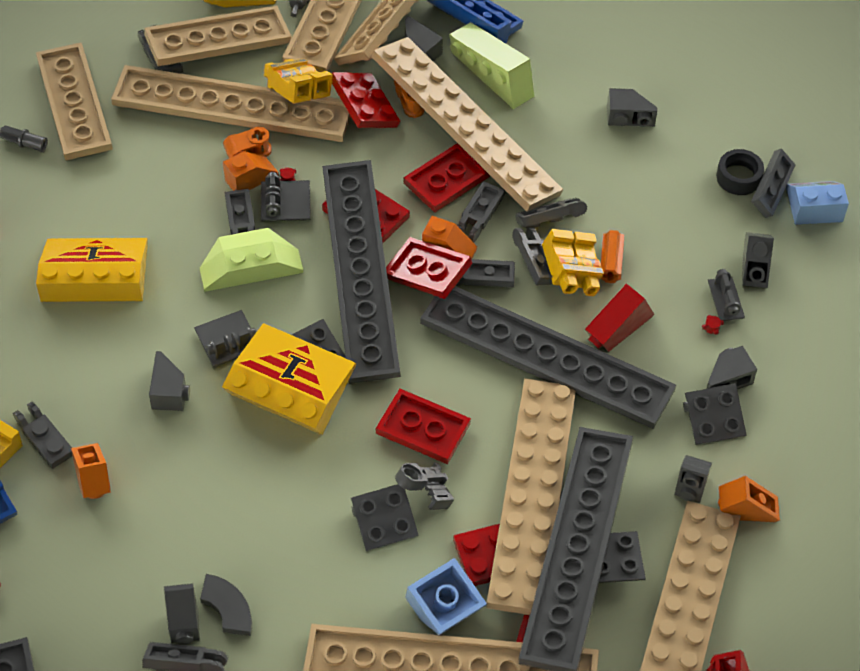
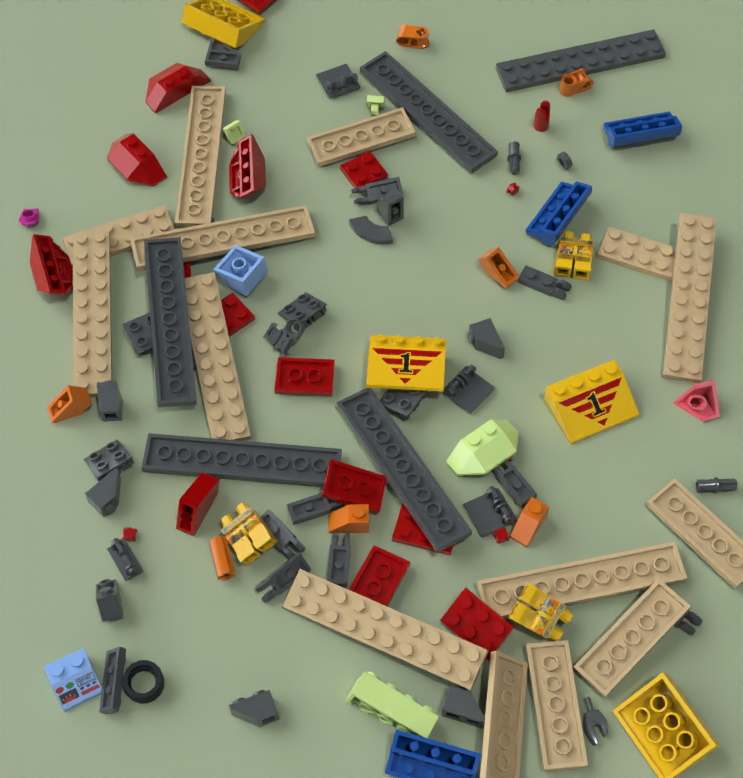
camera: 160 degrees right, 5 degrees up
(248, 142) = (544, 544): orange piece -> none

